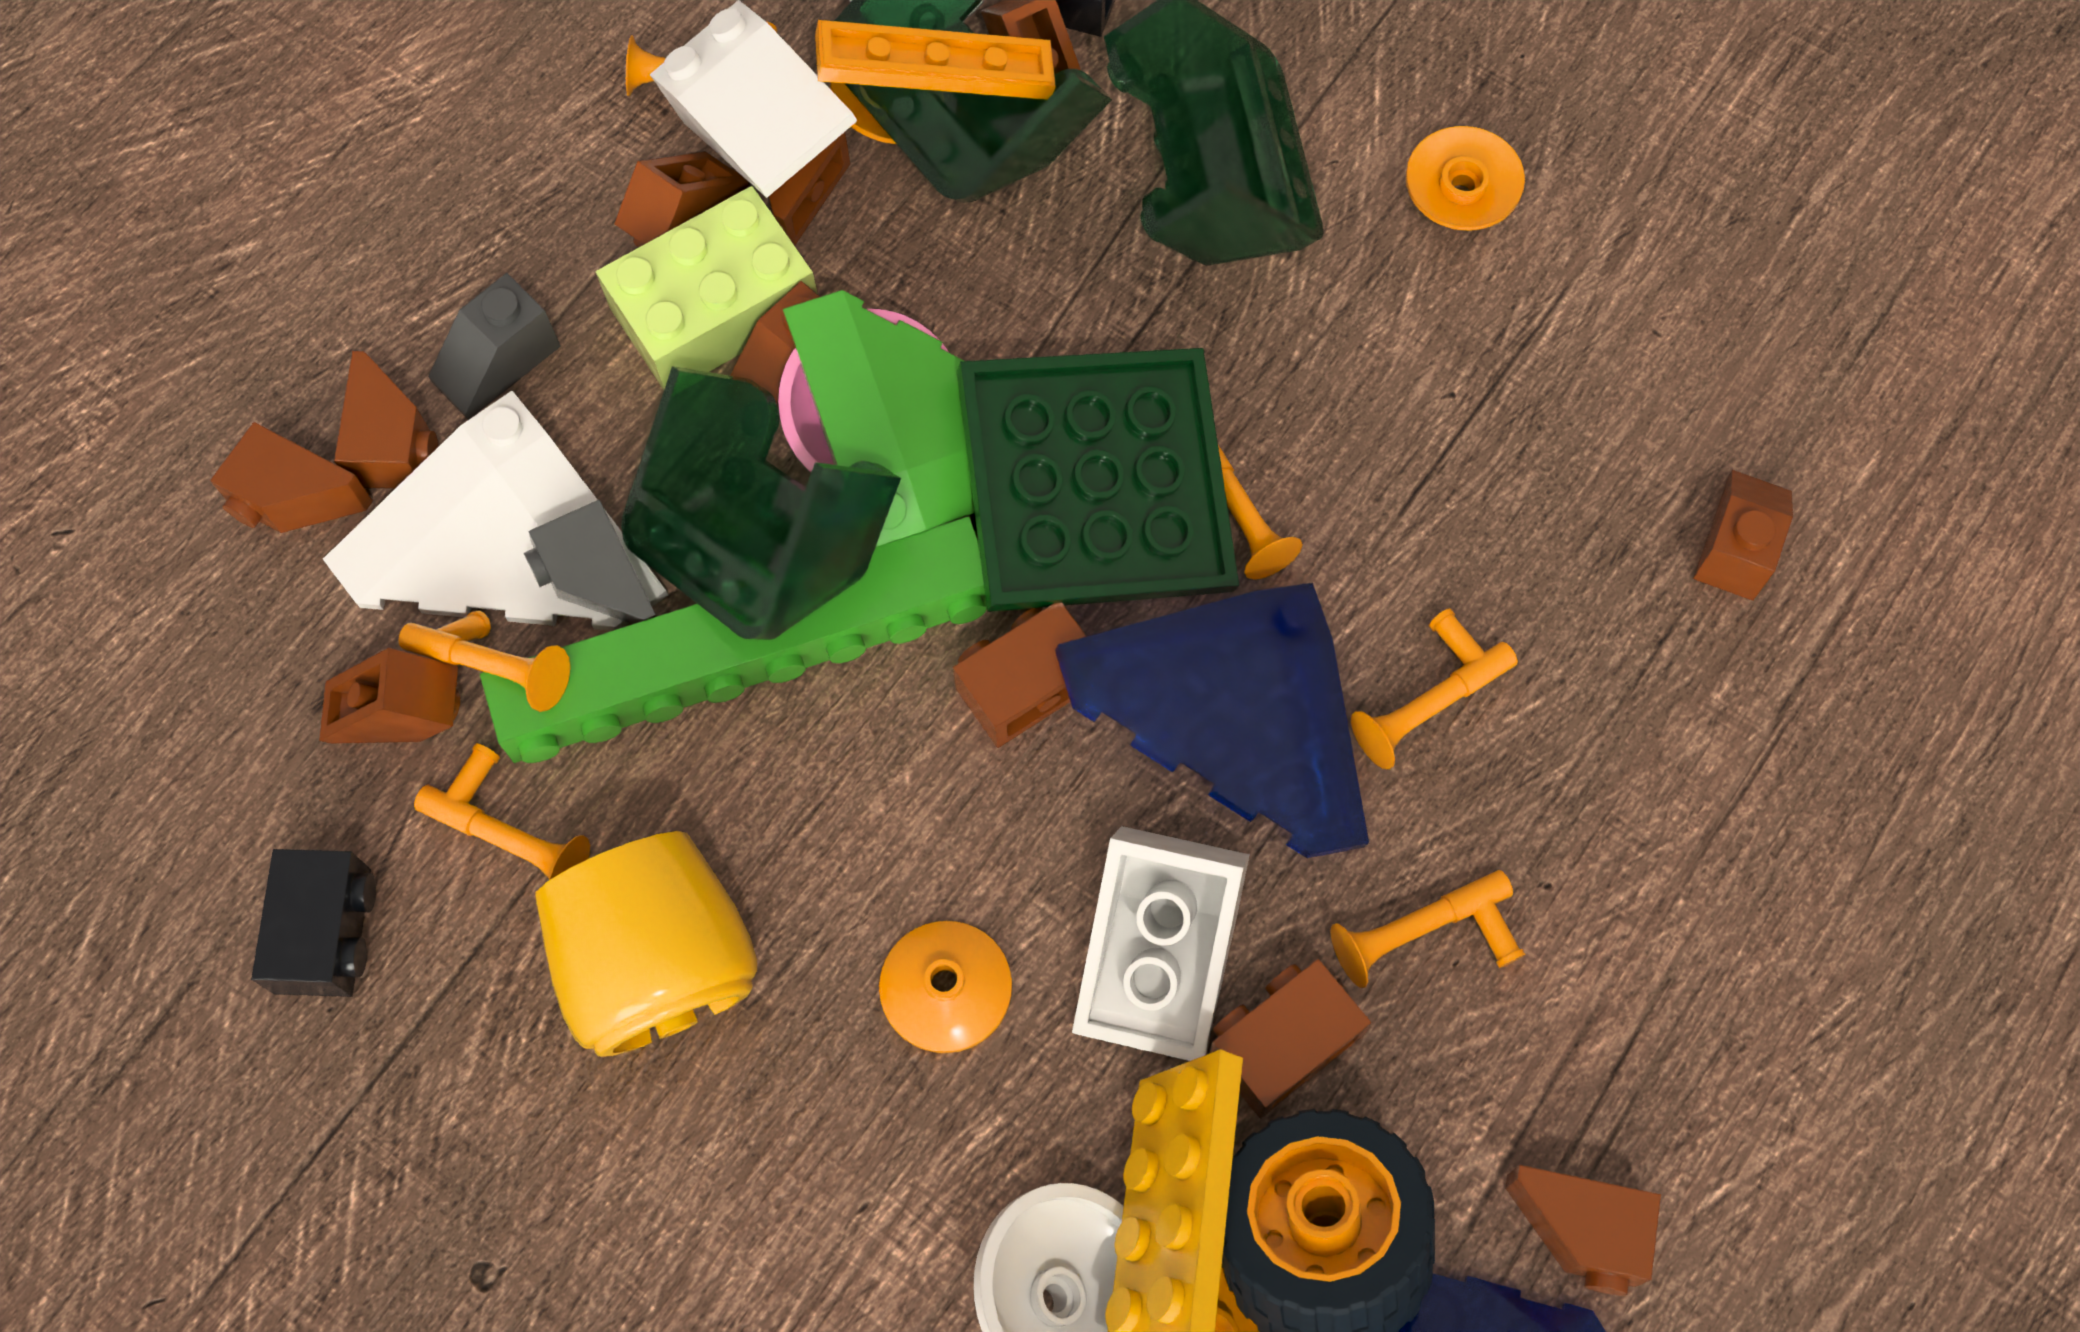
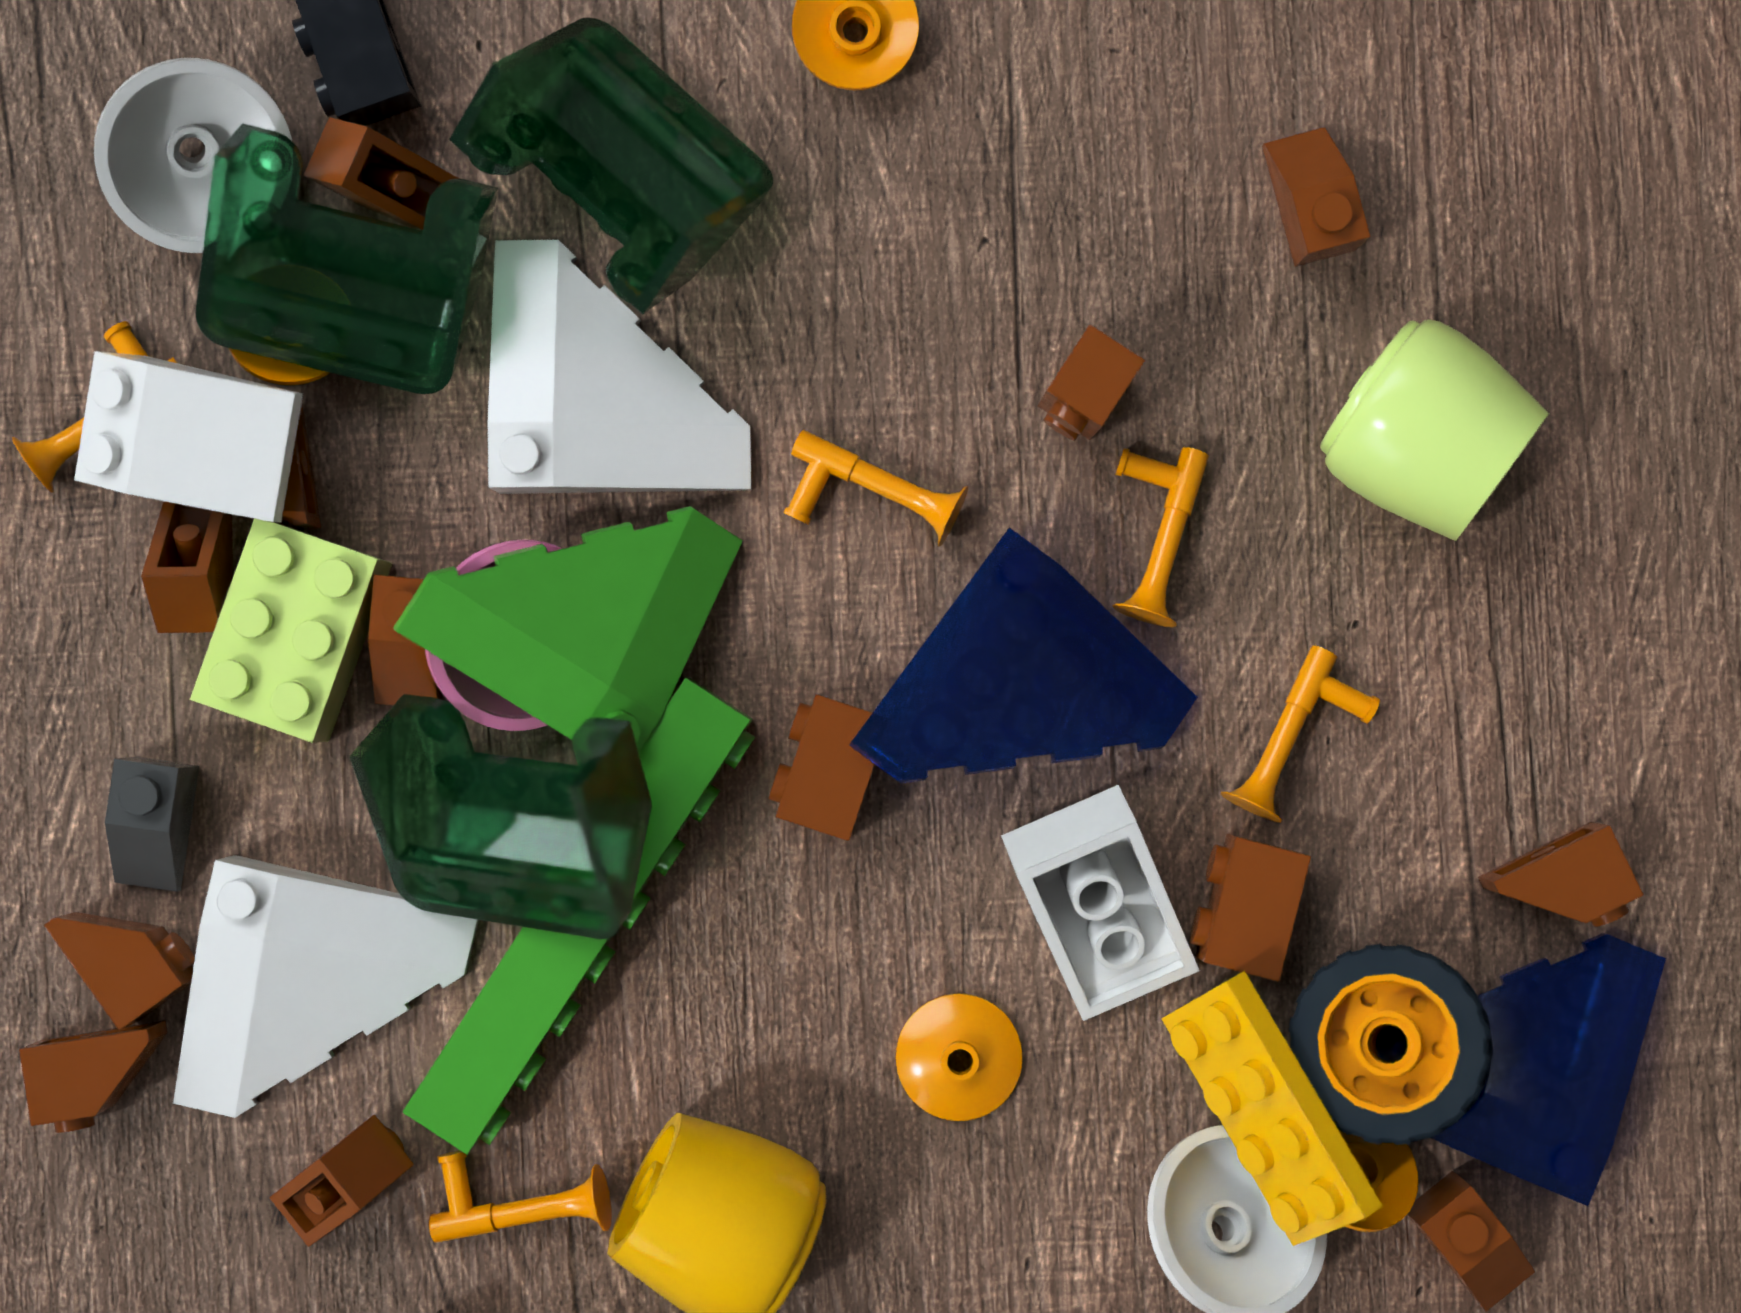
camera: 45 degrees left, 20 degrees up
(542, 676) = (460, 1086): light orange piece -> none
(588, 564) = (411, 957): dark grey slope -> none
(934, 60) = (320, 281): light orange tile -> none
(1054, 271) = (590, 396): none -> white slope
(1096, 478) = (764, 565): dark green plate -> none
(1458, 526) = (1089, 385): none -> dark orange brick
(1725, 755) = (1431, 428): none -> yellowish green piece

